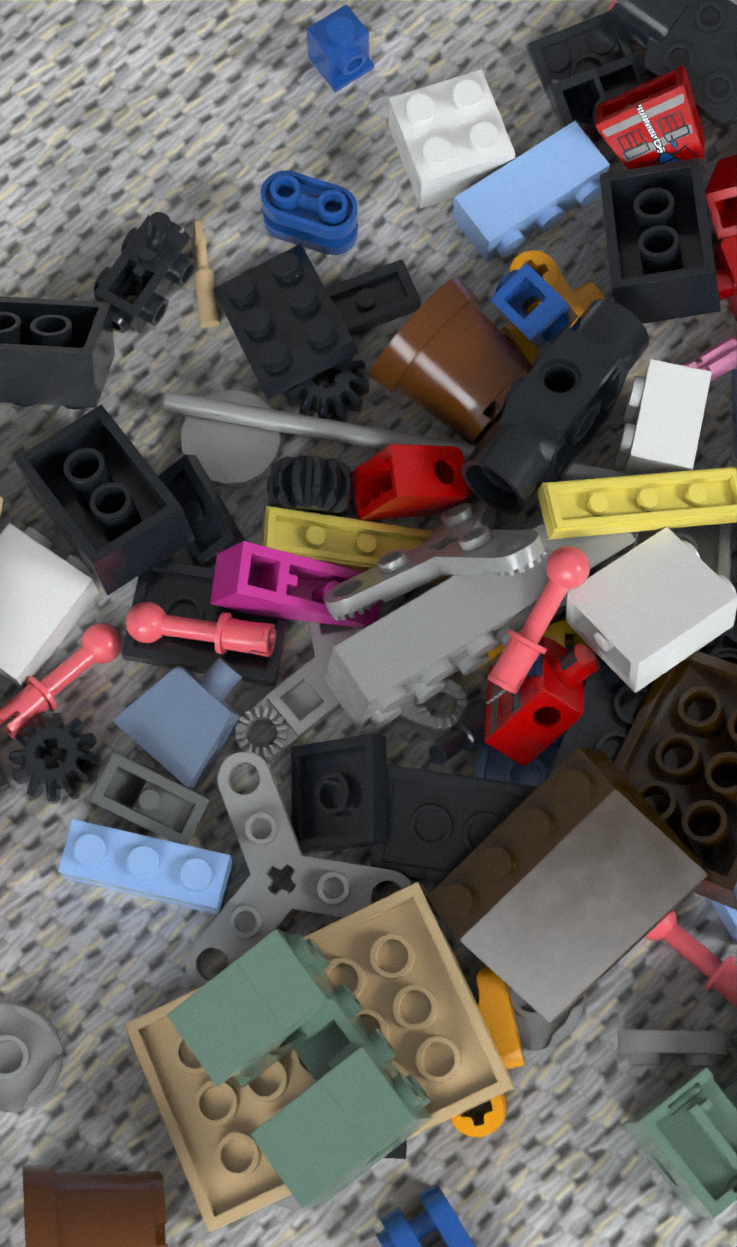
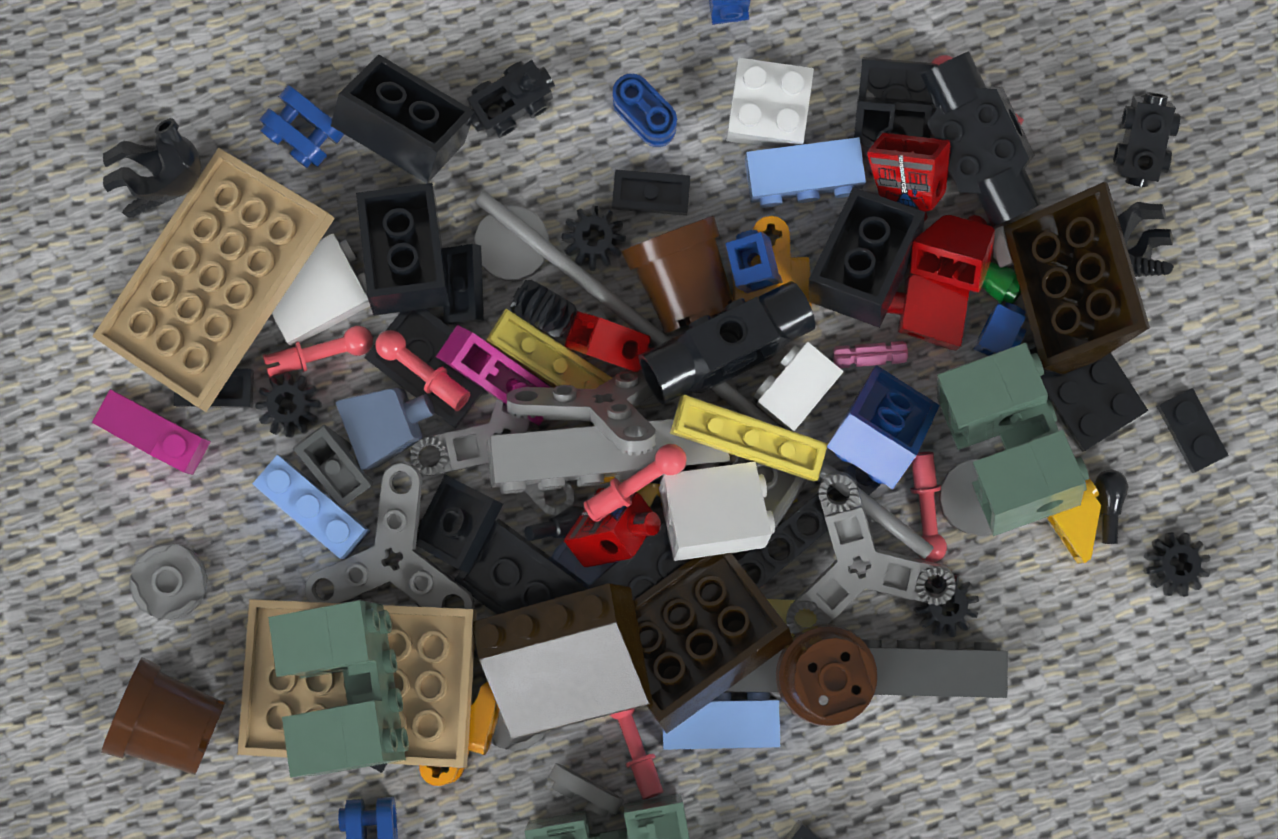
camera: 25 degrees right, 10 degrees up
(204, 281) = (550, 121): tan piece -> none
(285, 321) = (586, 182): black plate -> none

